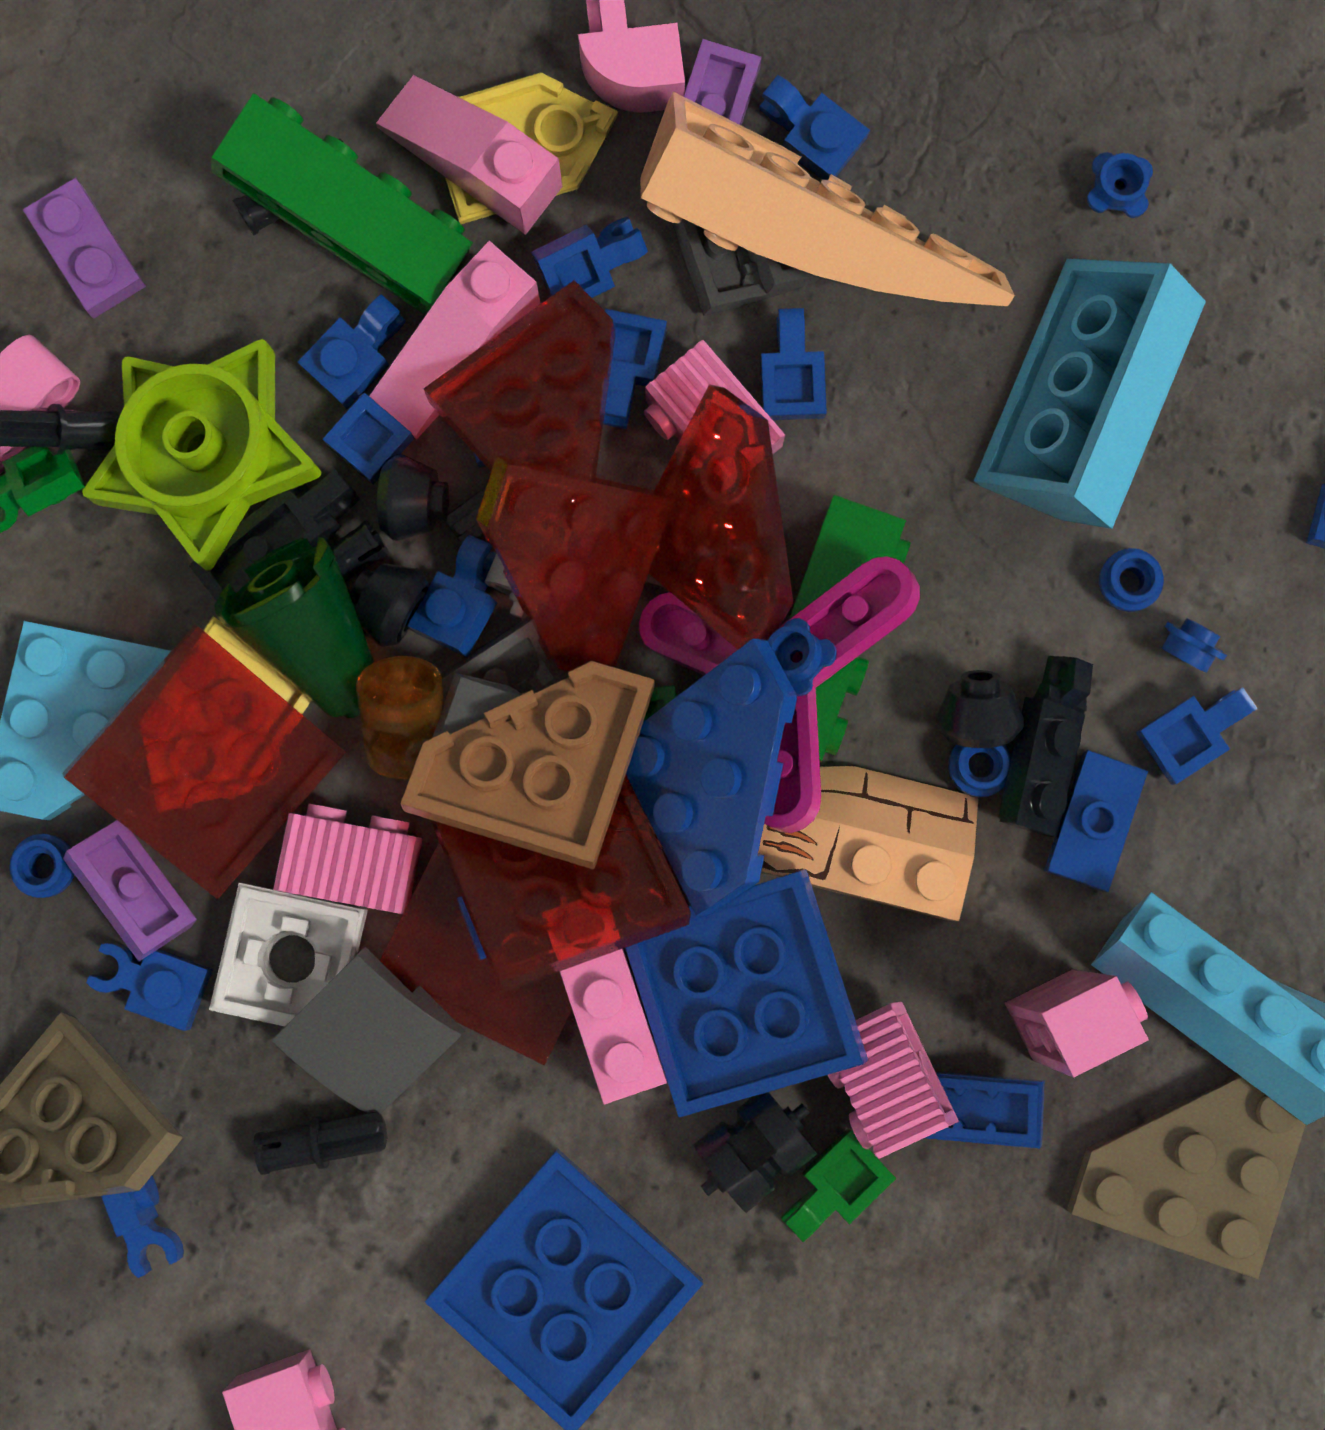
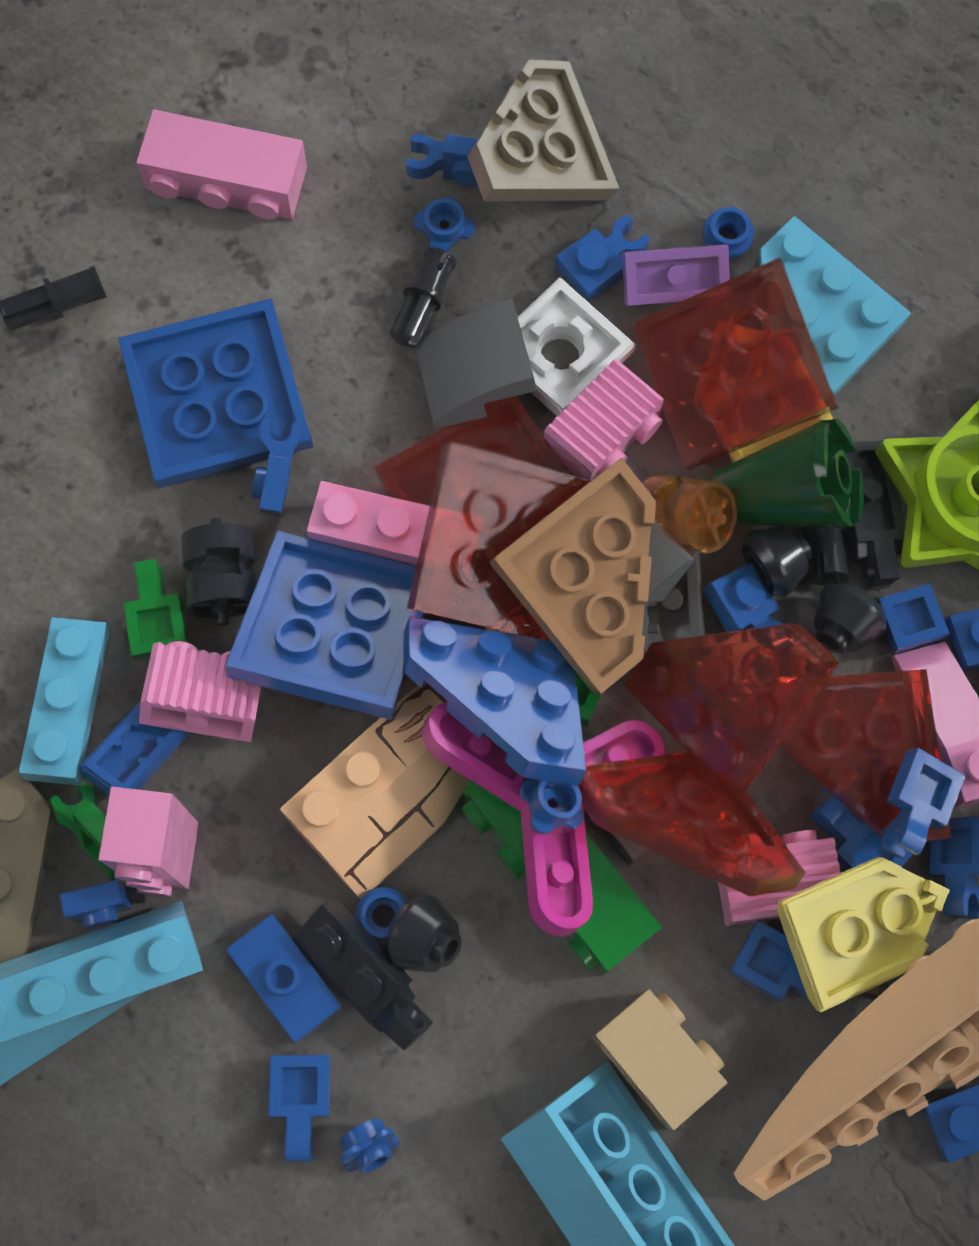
camera: 120 degrees right, 10 degrees down
(201, 1185) = (439, 211): none -> blue plate
(557, 319) = (925, 795): none -> blue plate
(628, 1160) = (272, 482): none -> blue plate
(719, 313) = (858, 929): none -> light yellow tile
(947, 432) = (661, 1059): none -> tan brick
(979, 1214) = (64, 701): none -> medium azure plate
(1082, 1107) = (85, 822): none -> green plate
(1147, 571) = (436, 1148): blue plate -> none
(1159, 1050) = (97, 904): none -> blue plate

